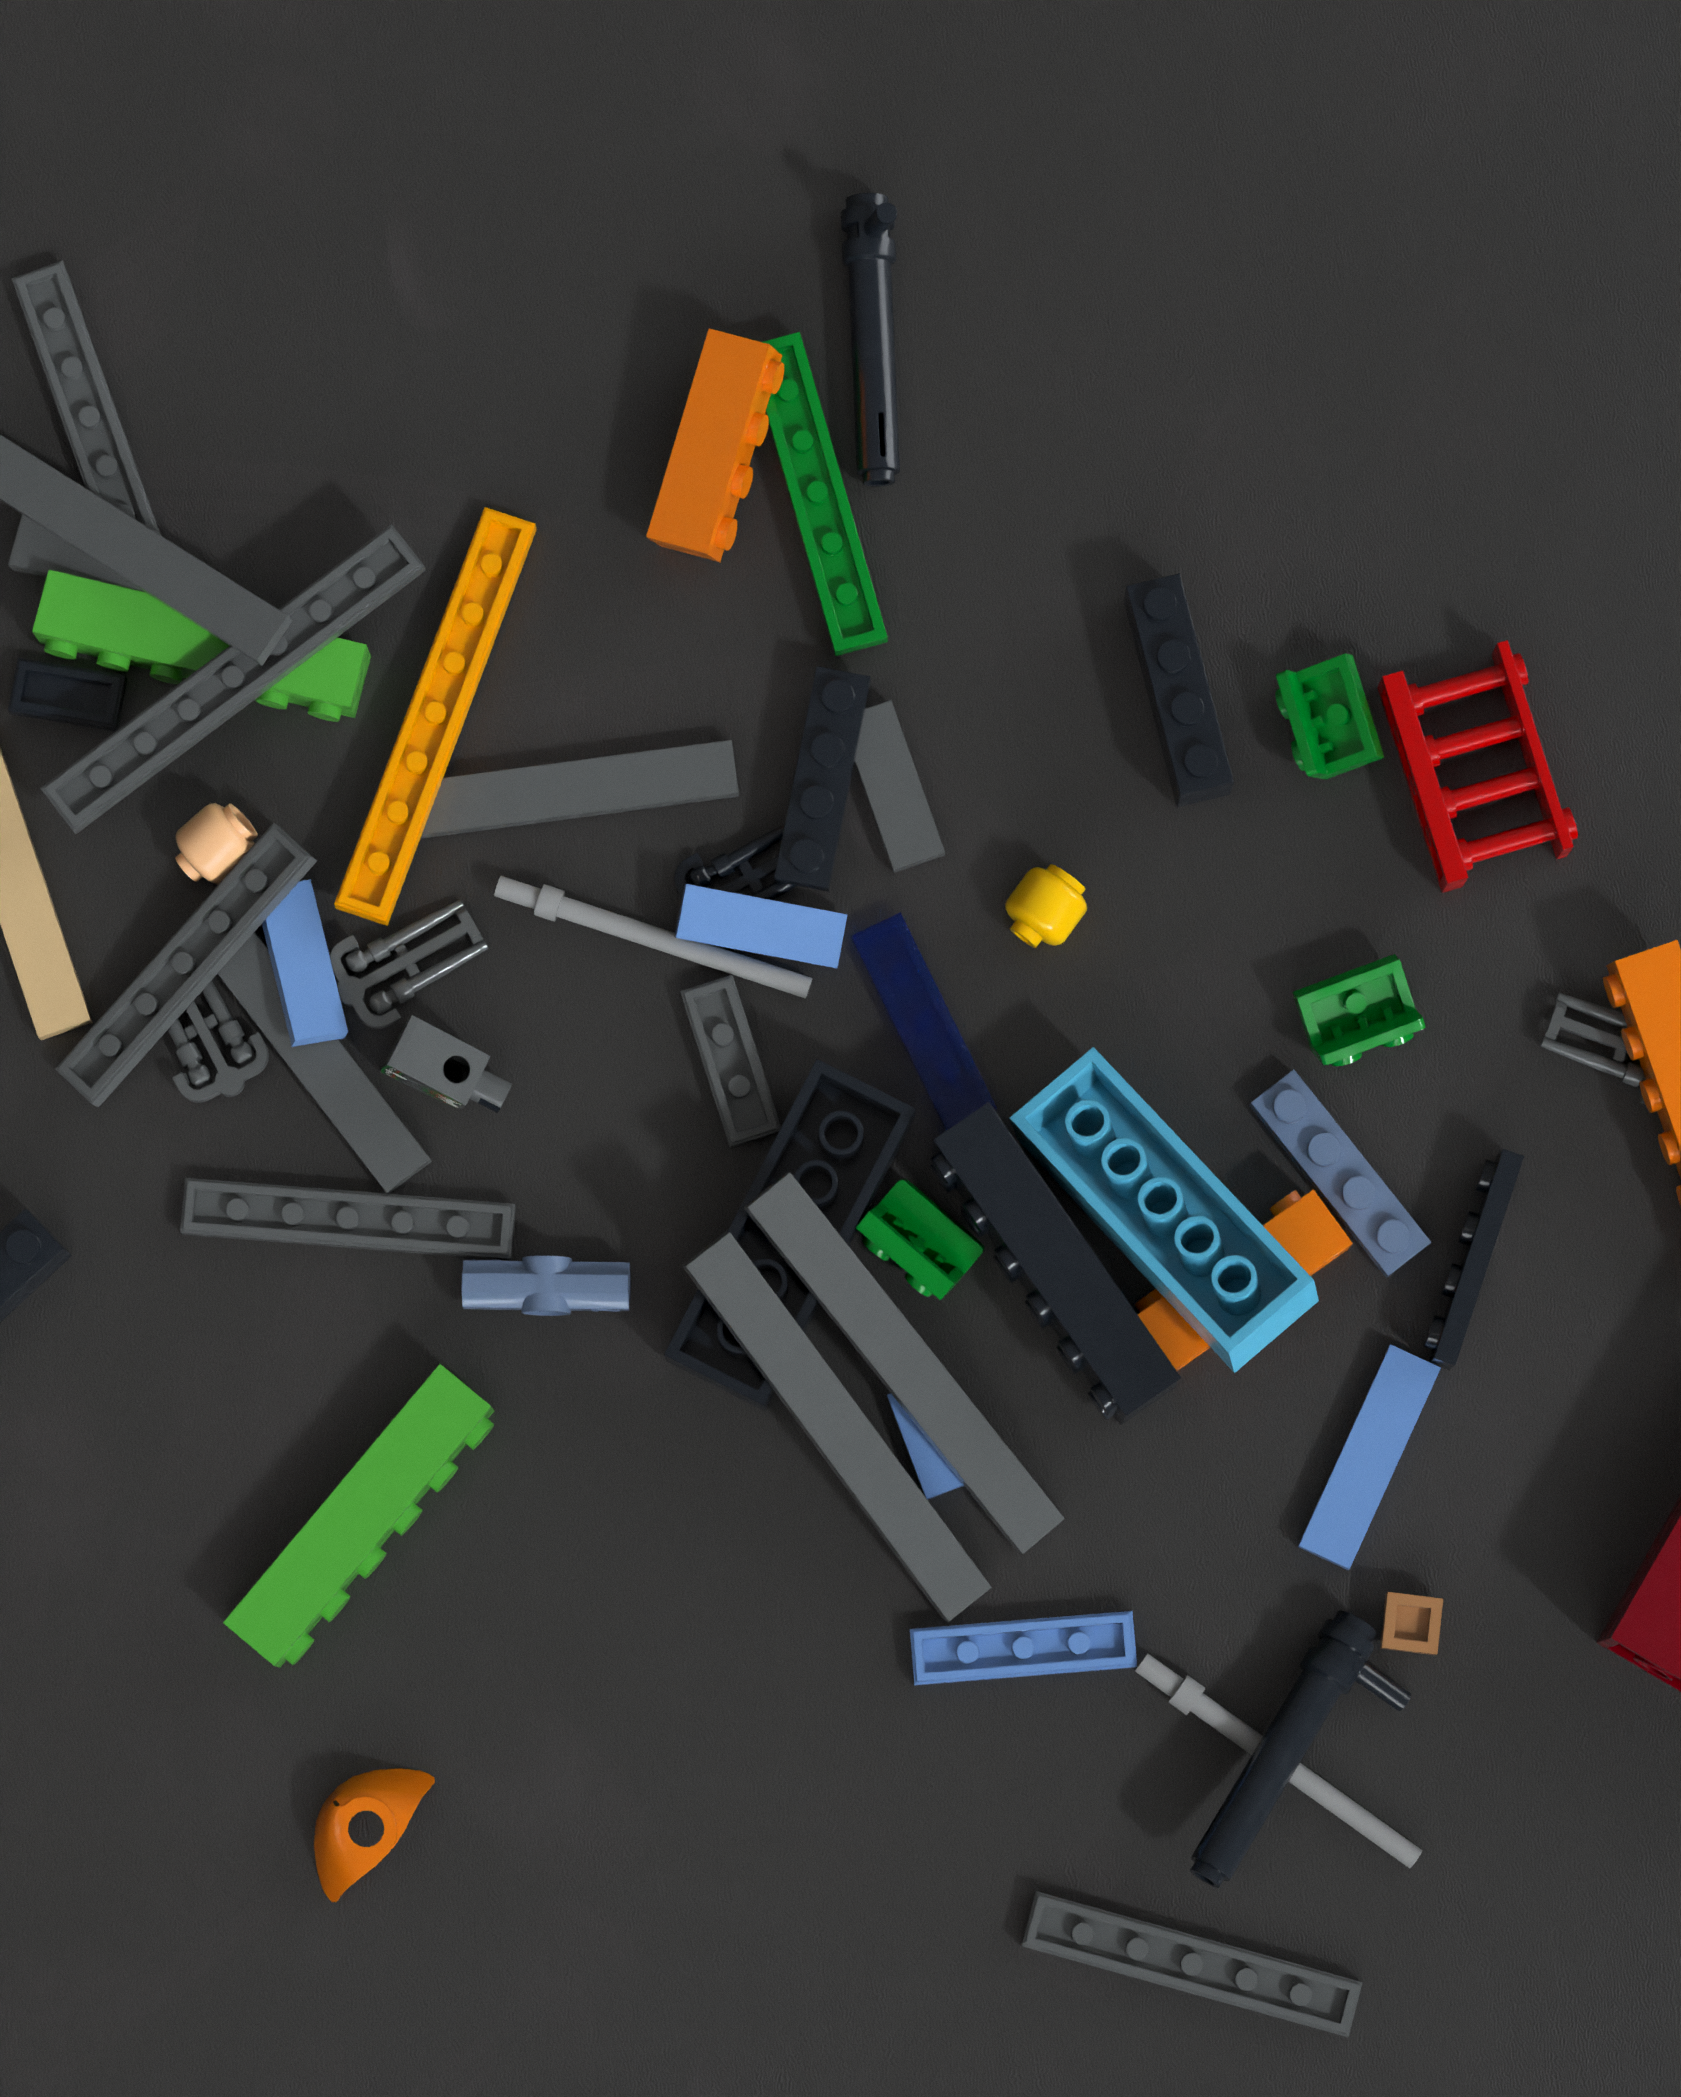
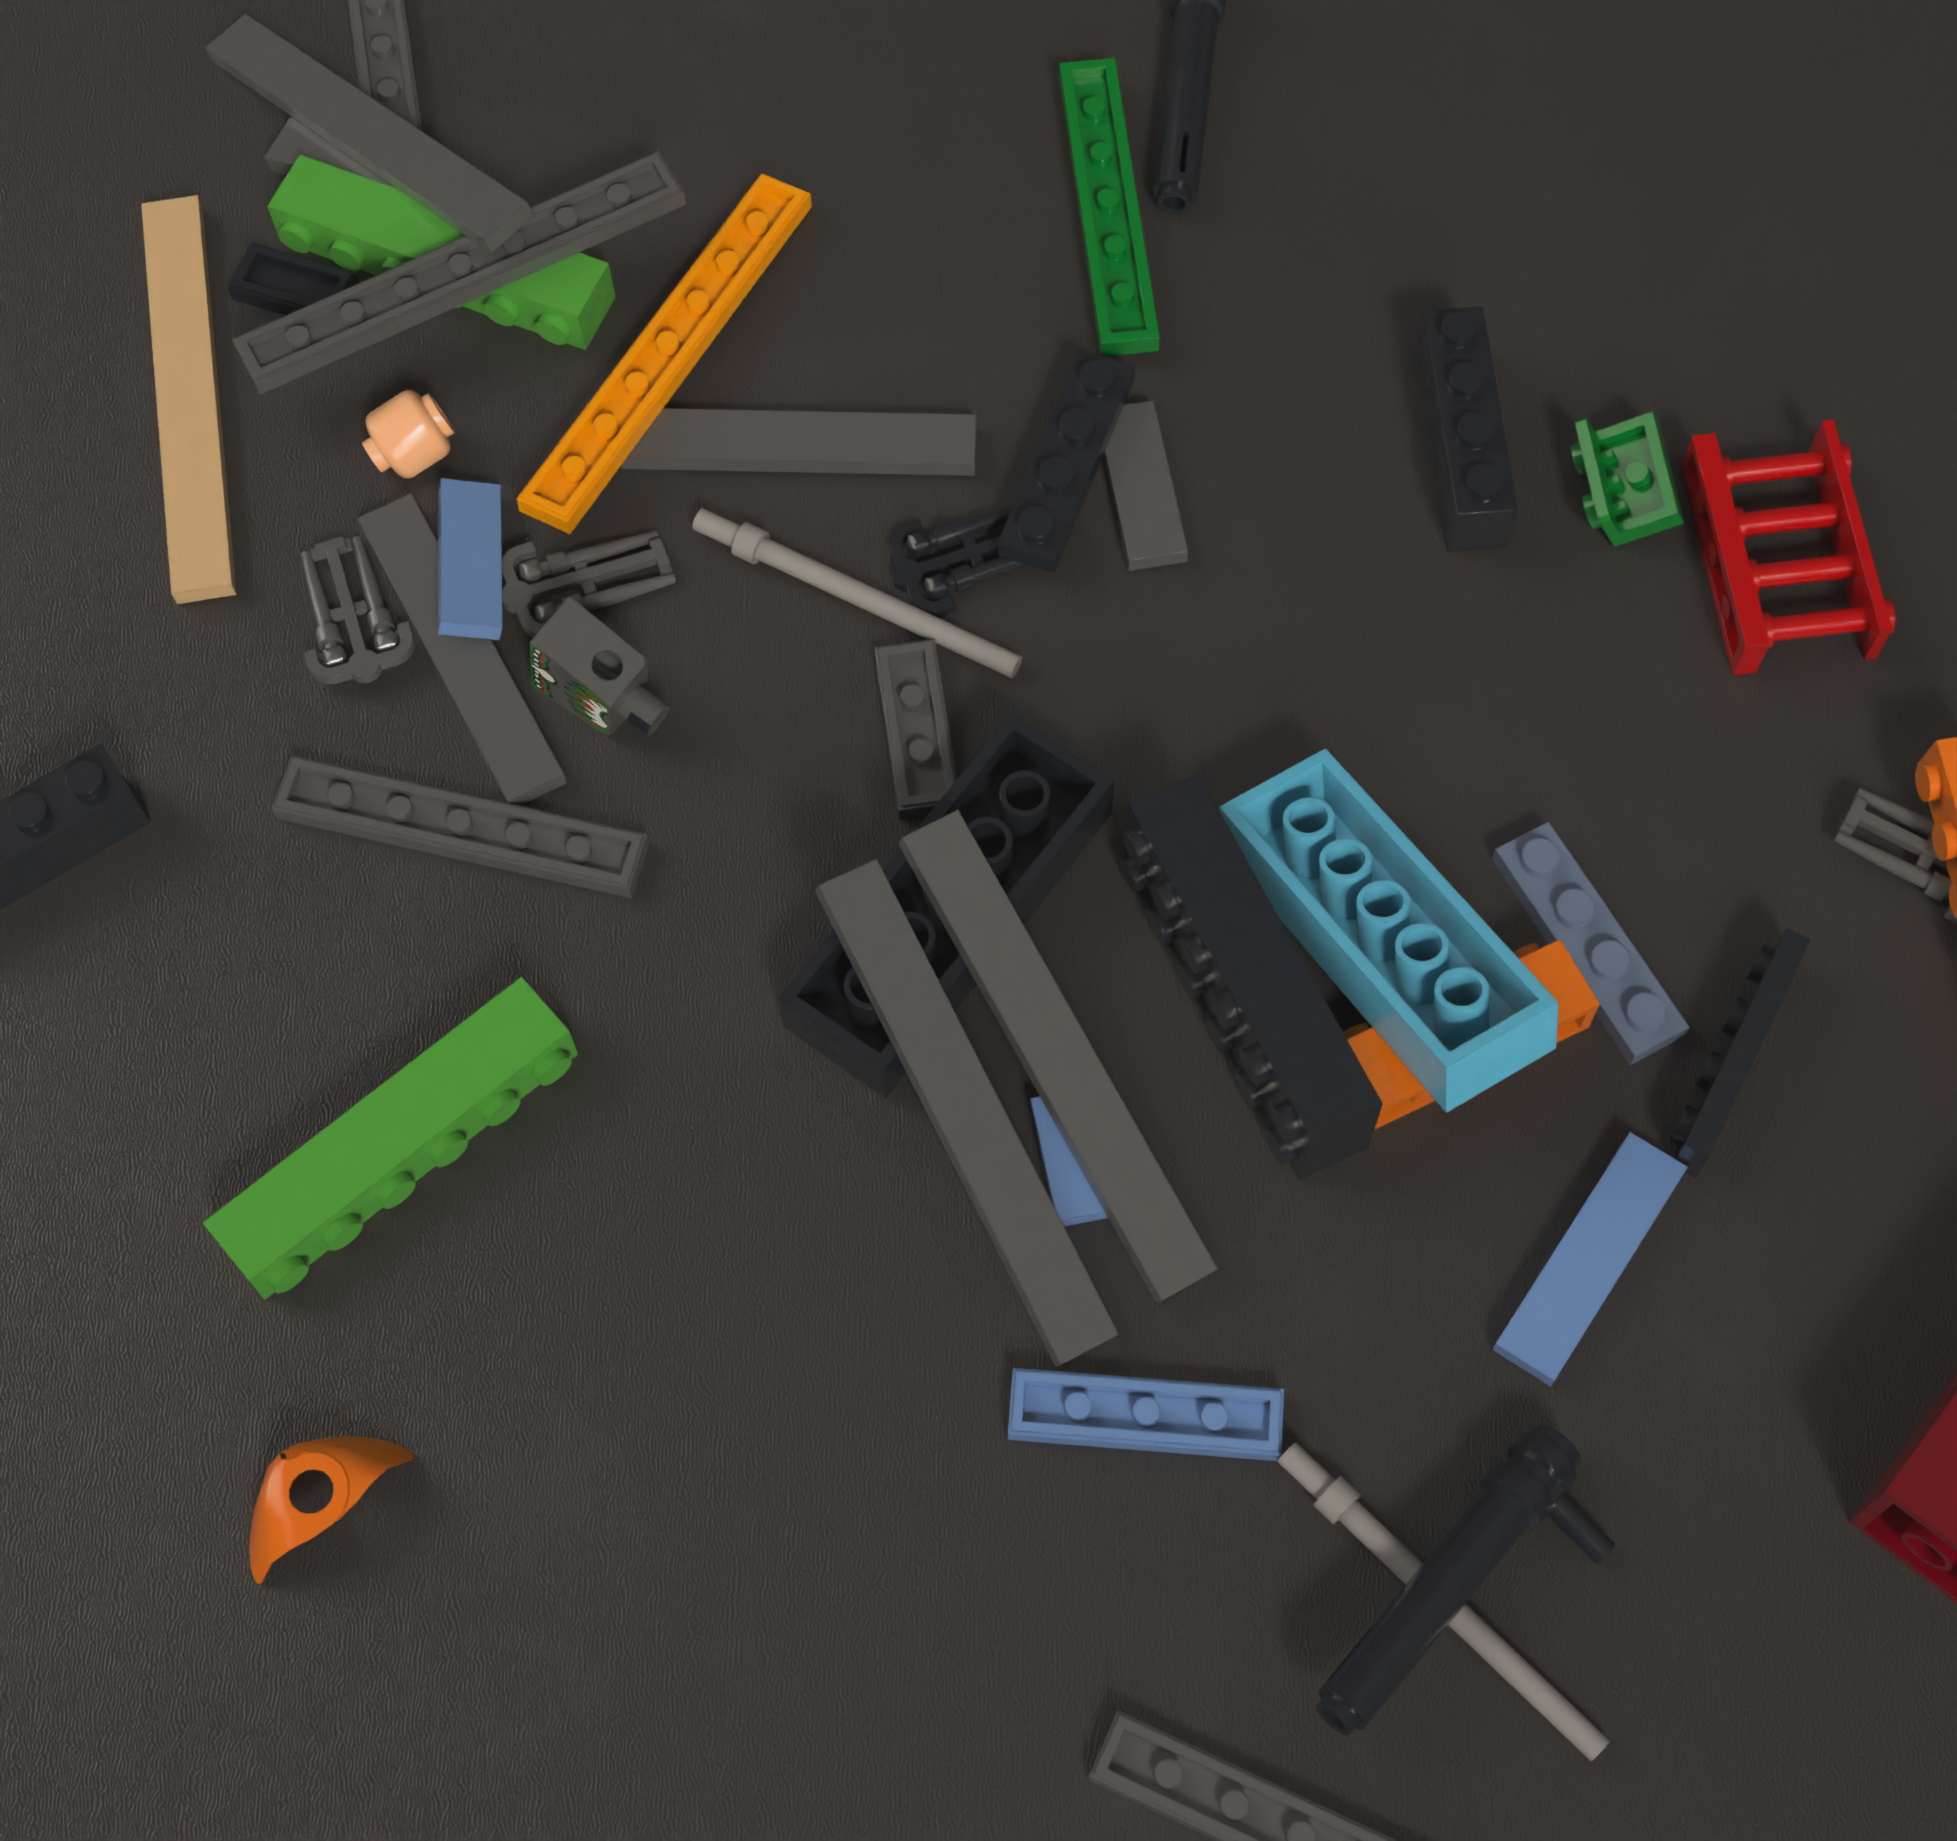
camera: 10 degrees right, 15 degrees down
(185, 965) = (344, 542): dark grey tile -> none
(546, 1285) = (663, 922): sand blue piece -> none
(716, 445) = (1008, 138): orange brick -> none
(760, 926) = (974, 592): medium blue tile -> none
(920, 1239) = (1100, 929): green bracket -> none
(922, 1020) = (1130, 701): clear blue tile -> none
(1046, 906) = (1291, 617): yellow head -> none
(1358, 1012) = (1627, 768): green bracket -> none
(1411, 1623) = (1624, 1457): medium nougat plate -> none

